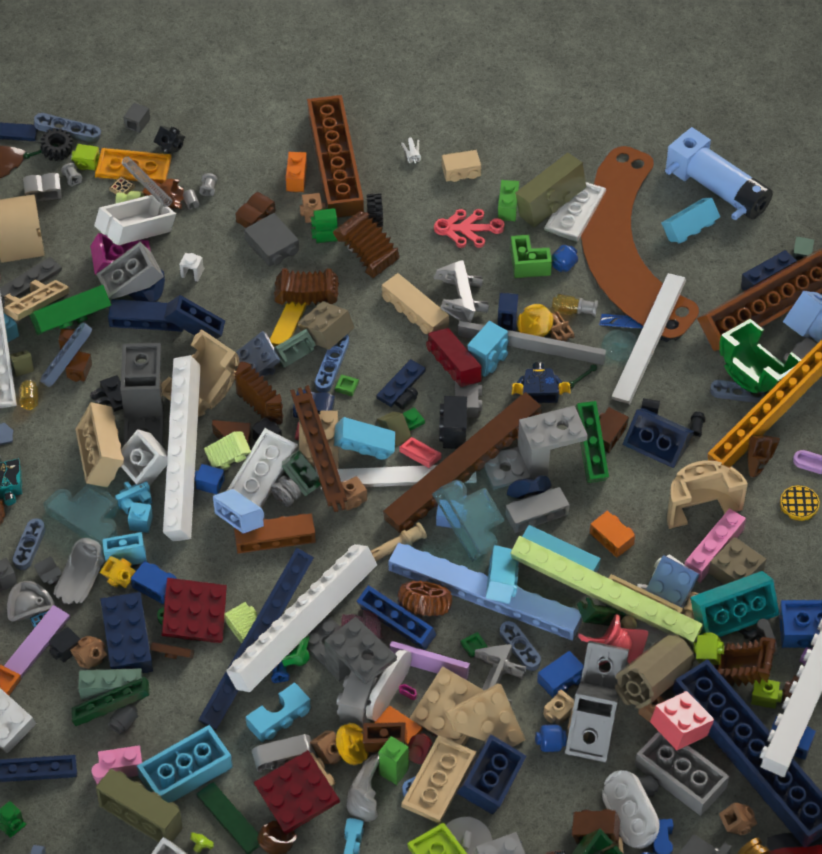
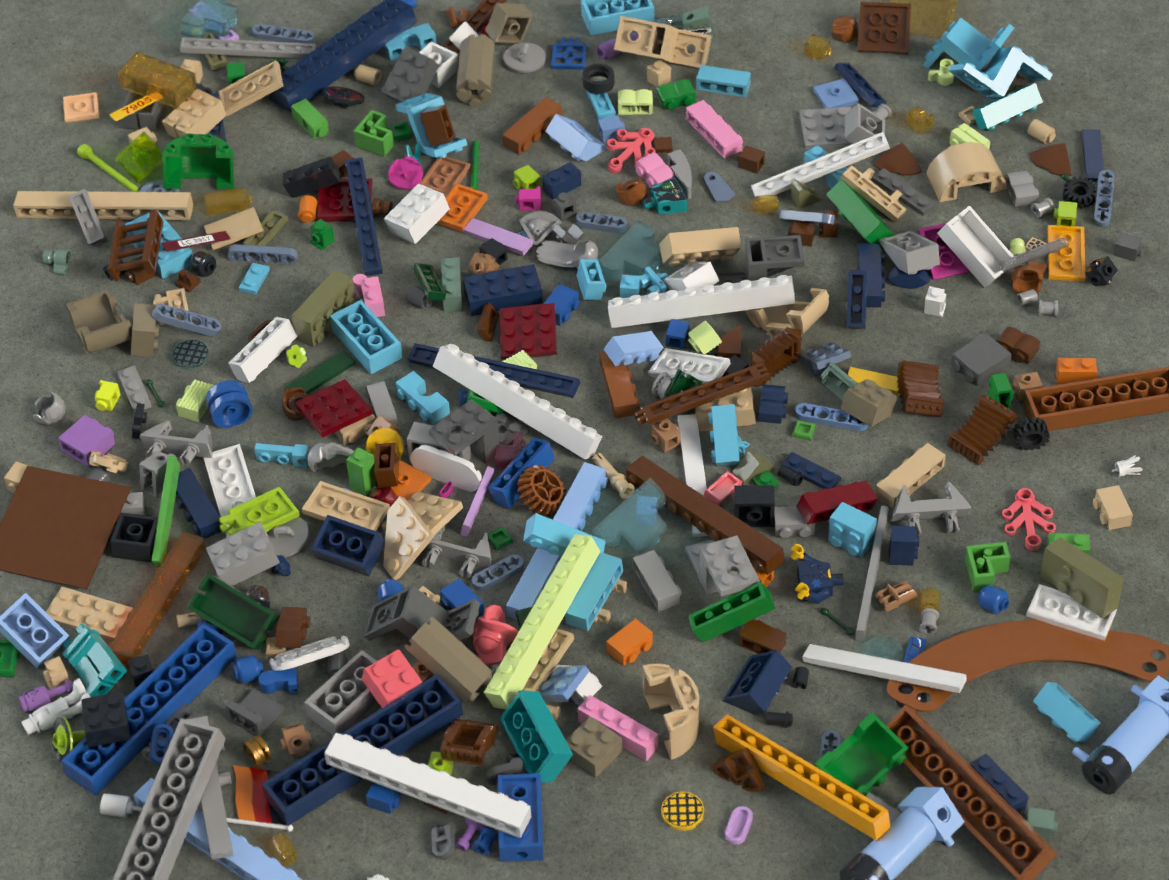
camera: 90 degrees right, 5 degrees down
(118, 572) = (566, 275): yellow brick -> none
(523, 486) = (682, 573): dark blue hat -> none
(535, 320) = (898, 573): yellow tile -> none
(708, 647) = (481, 711): lime brick -> none

